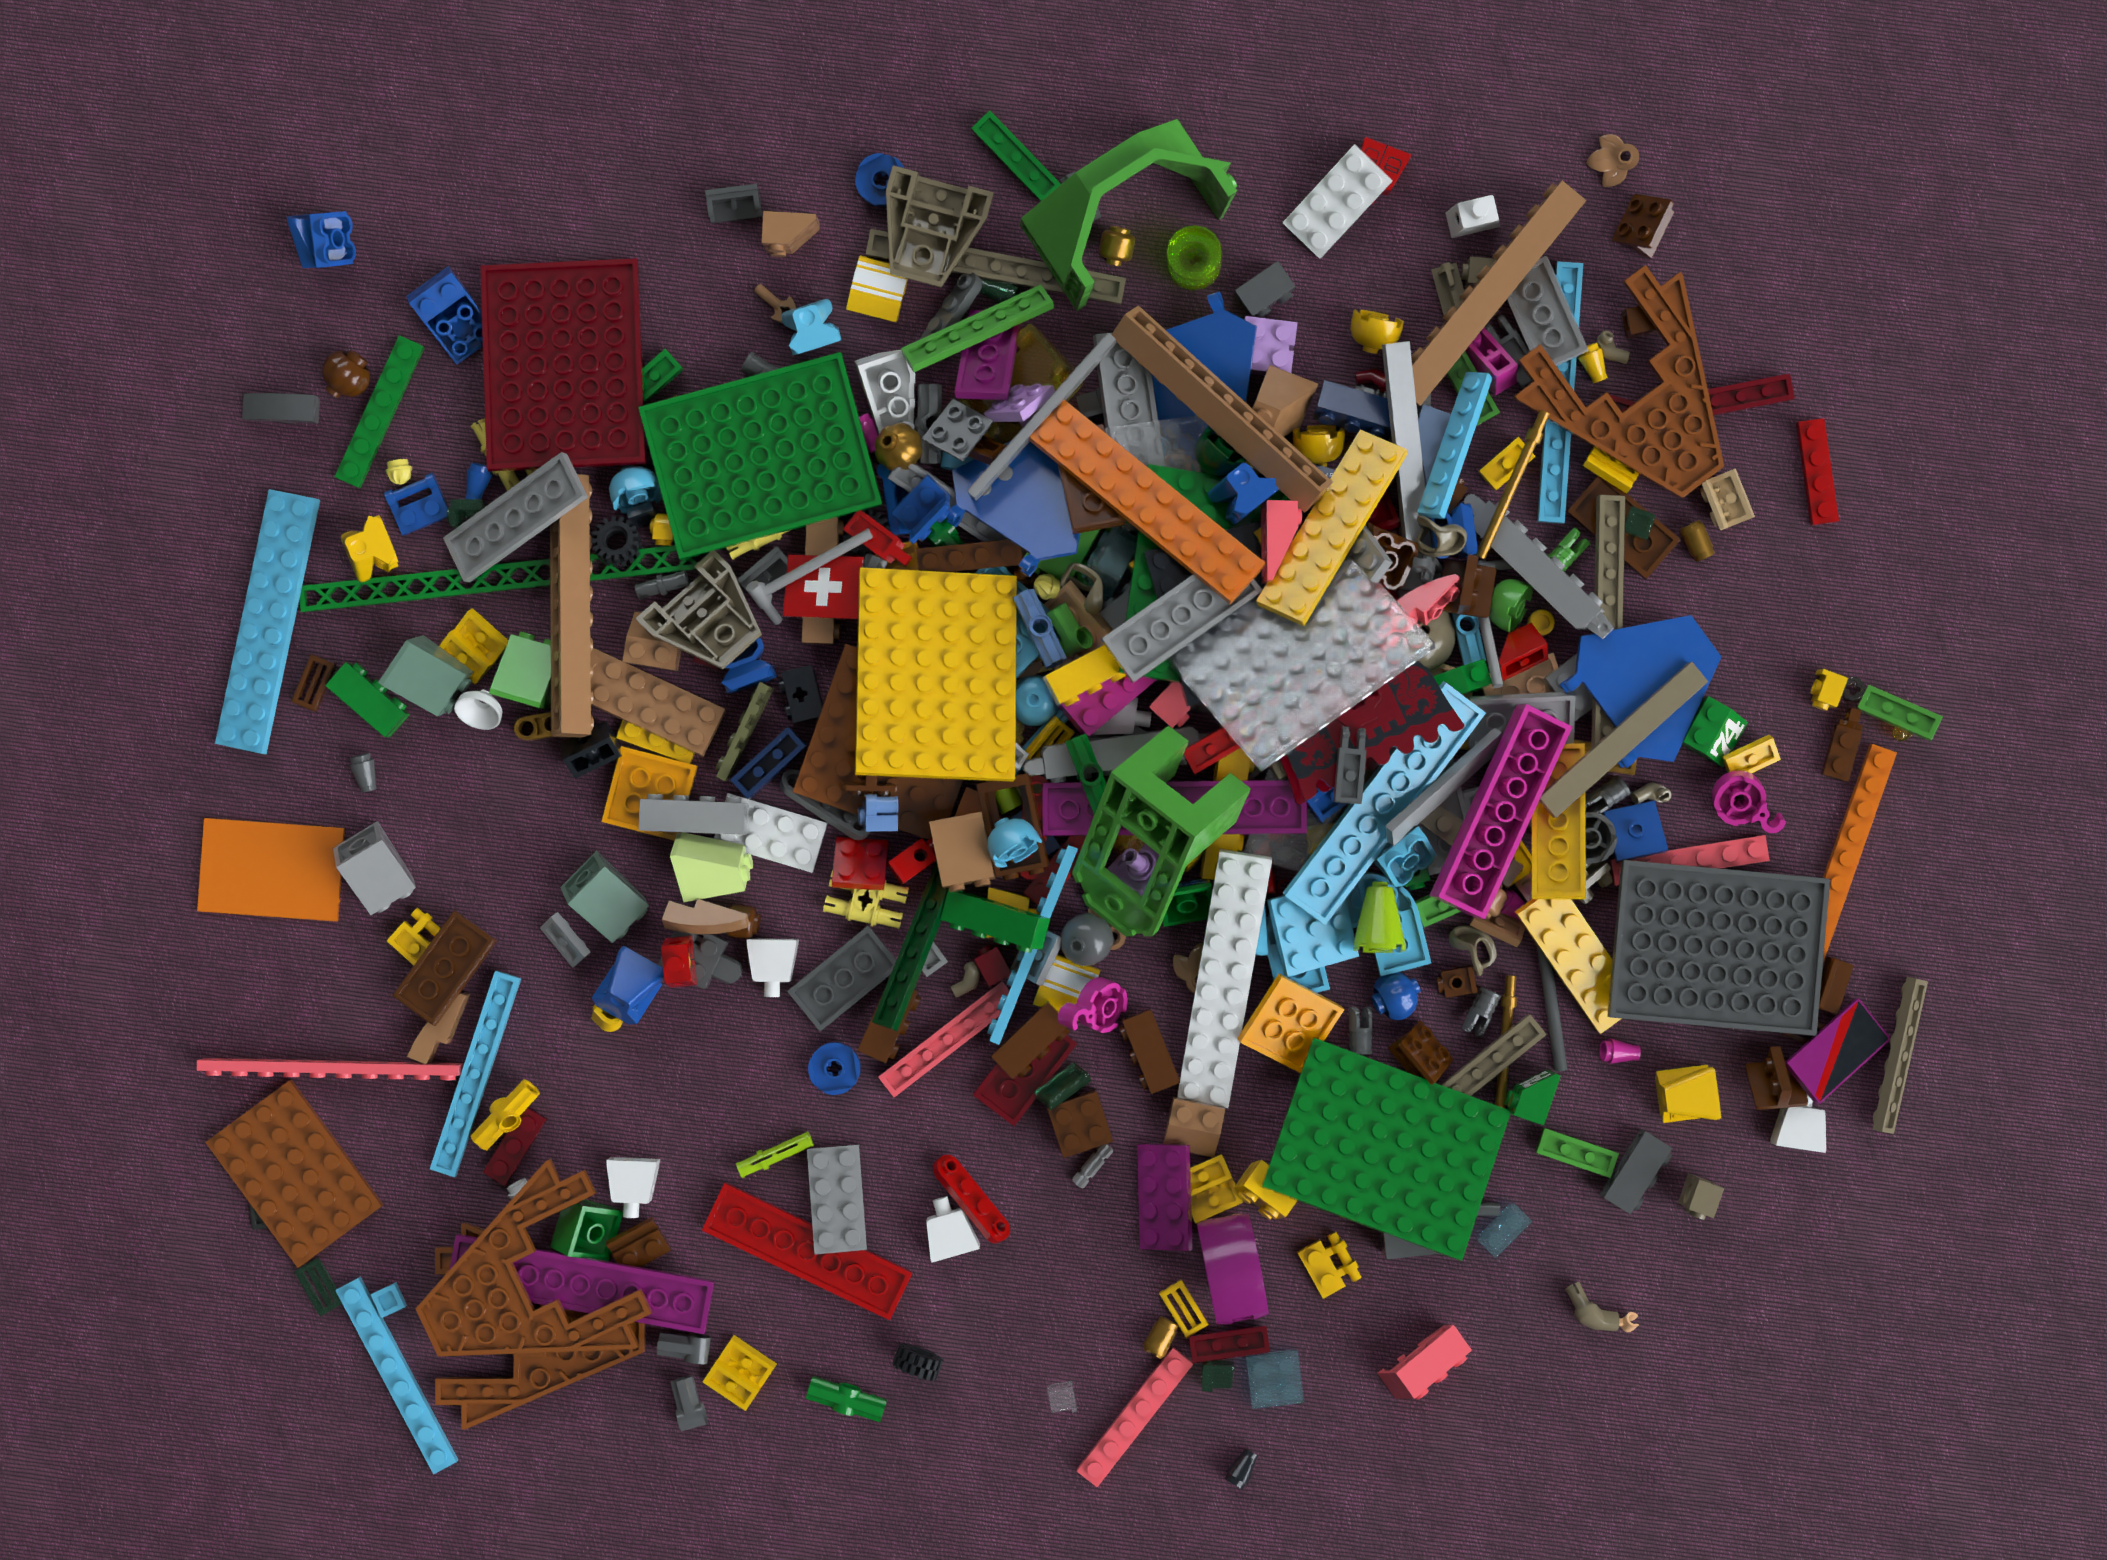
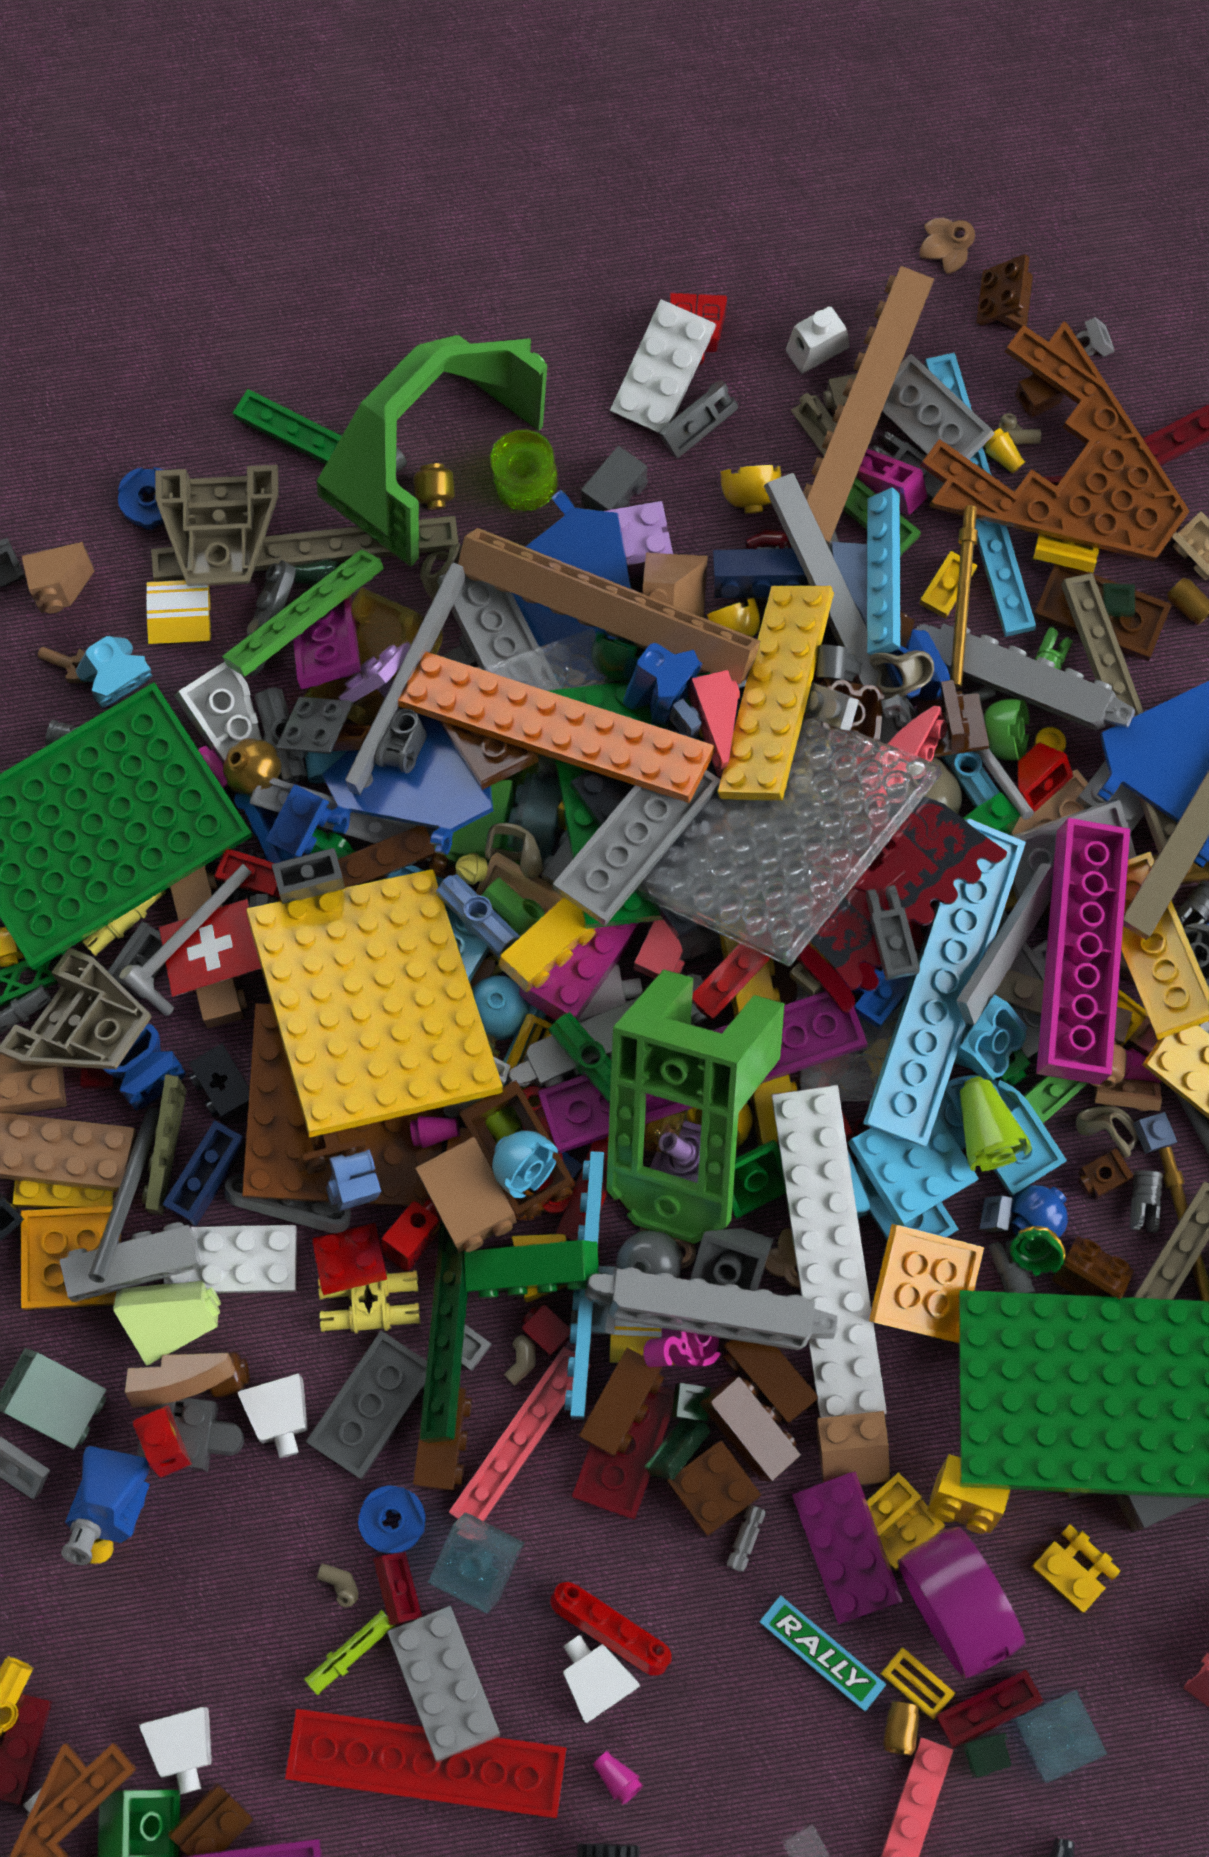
camera: 20 degrees left, 15 degrees down
(599, 1017) = (81, 1542): none -> light grey bush
(703, 762) = (124, 1196): none -> dark grey piece
(784, 1102) = (343, 1584): none -> dark tan arm
(823, 1120) = (397, 1588): none -> dark red plate
(886, 1122) = (476, 1562): none -> clear light blue brick
(915, 558) = (308, 876): none -> dark grey brick
(942, 1305) = (618, 1778): none -> dark pink cone
(954, 788) = (432, 1130): none -> dark pink cone
(1019, 474) = (400, 745): none -> dark grey piece
(1087, 1056) = (687, 1402): none -> dark green plate
(1090, 330) = (430, 581): none -> dark tan piece
(1119, 997) = (711, 1308): none -> light grey hinge
(1121, 1265) = (822, 1653): none -> tile
(1122, 1088) = (751, 1428): none -> brick
(1147, 964) = (732, 1258): none -> dark grey slope
(1251, 531) = (685, 719): none -> sand blue plate
(1352, 255) = (698, 419): none -> dark grey plate
(1363, 985) = (996, 1214): none -> sand blue plate
(1383, 1026) = (1037, 1250): none -> green hair
(1388, 516) = (837, 663): none -> dark grey piece
(1508, 961) = (1155, 1132): none -> sand blue plate
(1707, 287) = (1098, 336): none -> light grey tile

